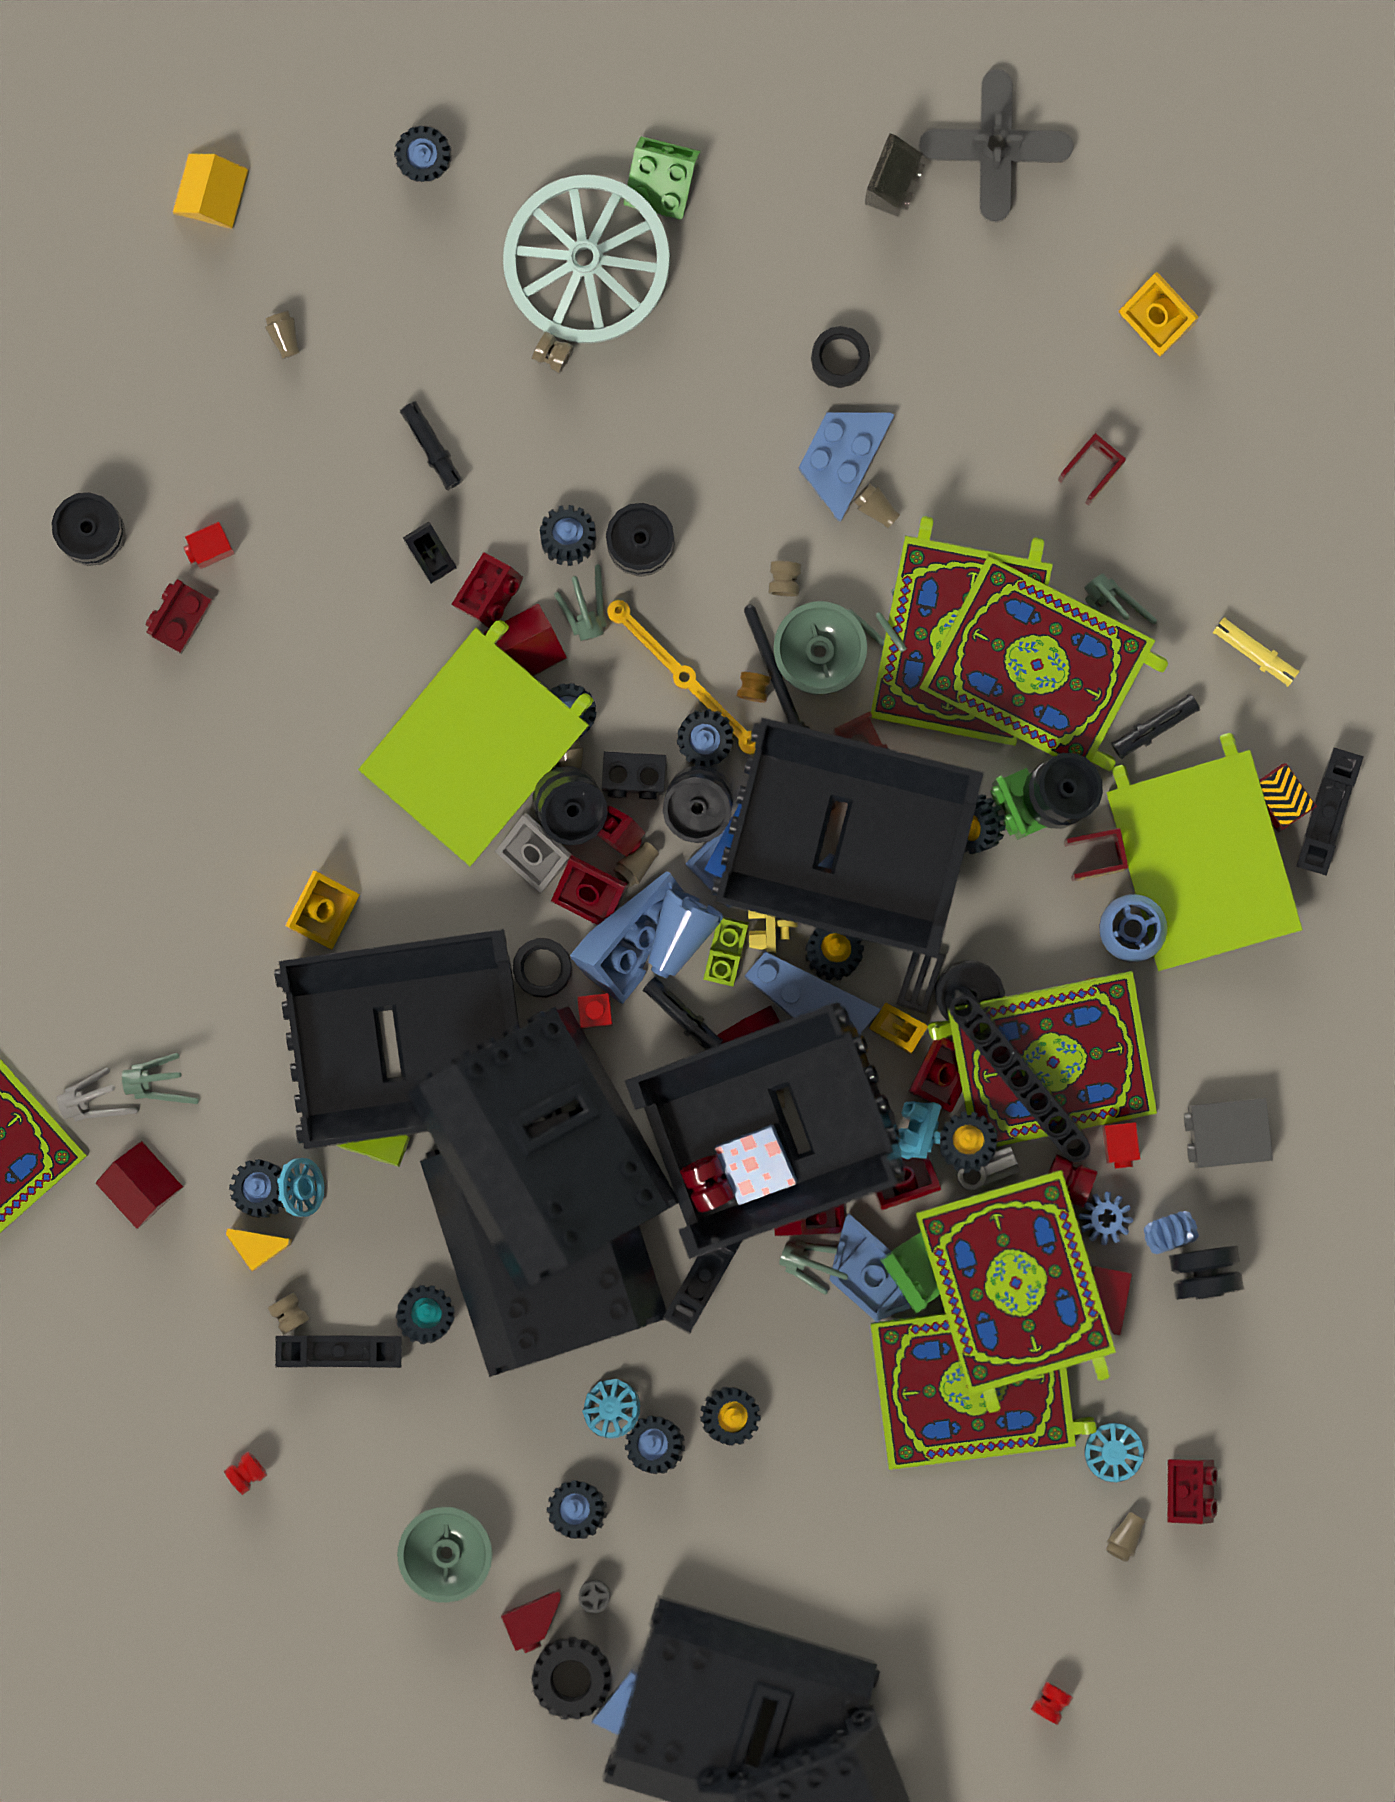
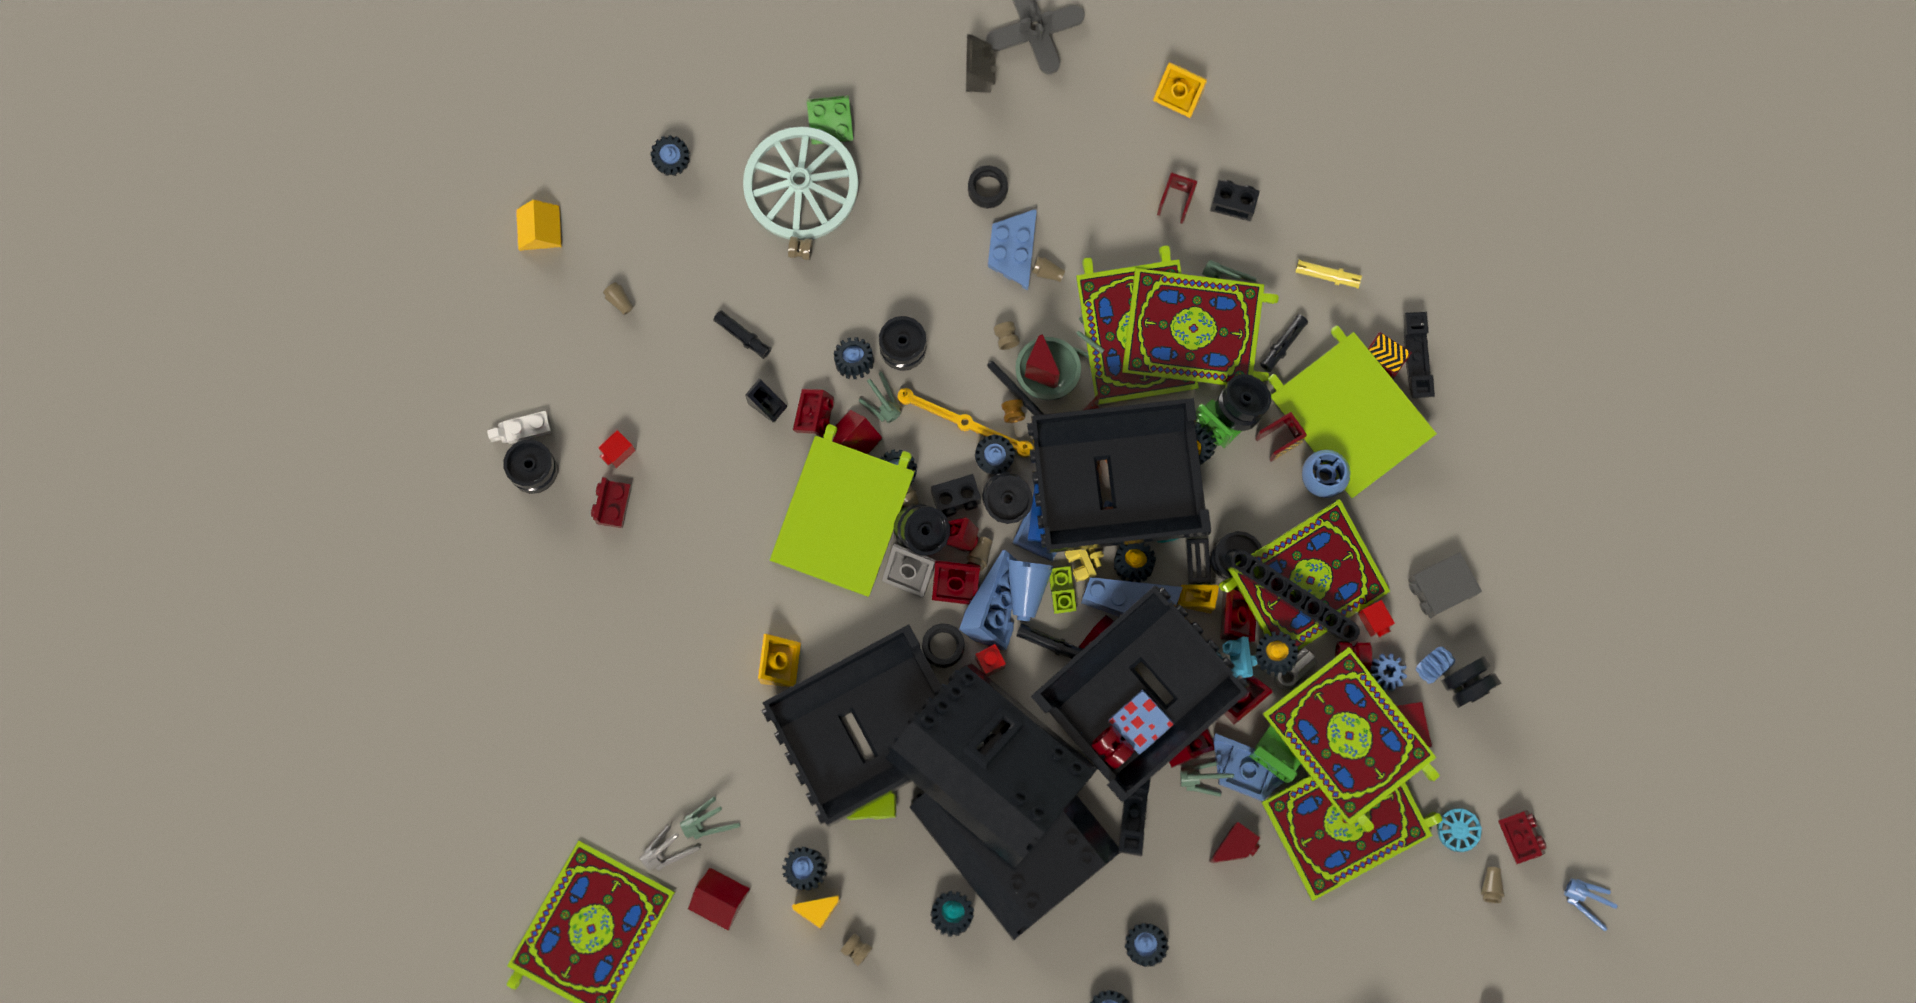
camera: 25 degrees left, 10 degrees down
(94, 469) = (521, 428): none -> white hinge
(301, 1187) = (833, 856): medium azure wheel -> none
(338, 1351) = (901, 963): black slope -> none
(611, 1408) = (1106, 931): medium azure wheel -> none
(730, 1416) = (1190, 904): black wheel -> none
(807, 644) = (1041, 365): none -> dark red slope
(819, 1364) = (1236, 845): none -> dark red slope
(1166, 507) = (1234, 206): none -> black brick
(1231, 1585) = (1579, 890): none -> medium blue plant

